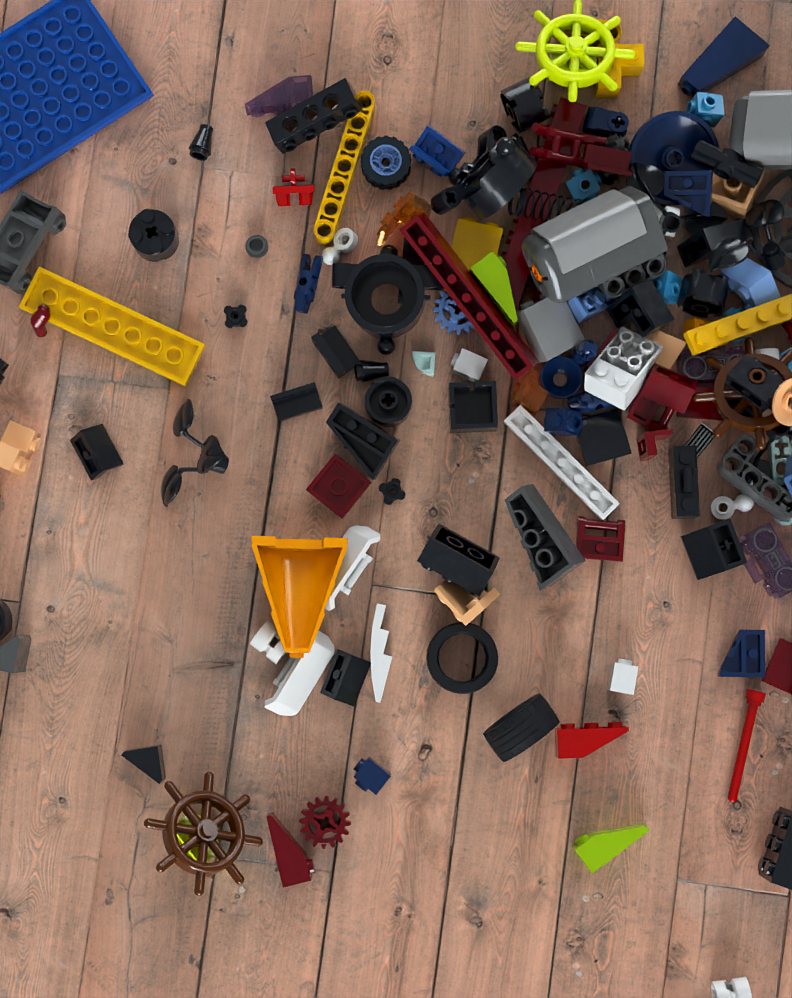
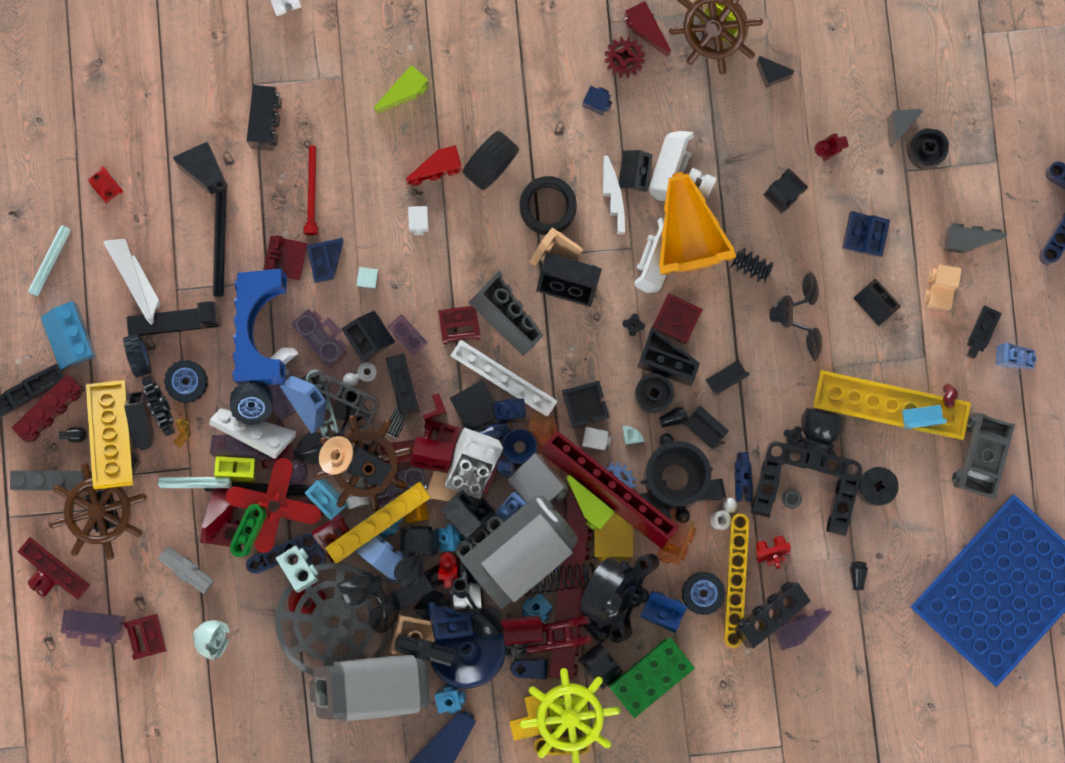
camera: 165 degrees right, 0 degrees up
(78, 299) = (923, 417): none -> medium azure panel
(88, 536) = (866, 234): none -> dark blue slope
(101, 649) = (831, 146): none -> dark red hips
(170, 607) = (785, 191): none -> black brick
(214, 290) = (815, 453): none -> black piece
(232, 528) = (752, 265): none -> black piece
(469, 76) = (651, 677): none -> green brick
(666, 538) = (407, 335): none -> clear purple brick
(677, 251) = (448, 568): none -> red hips
(698, 621) = (367, 277): none -> light aqua tile

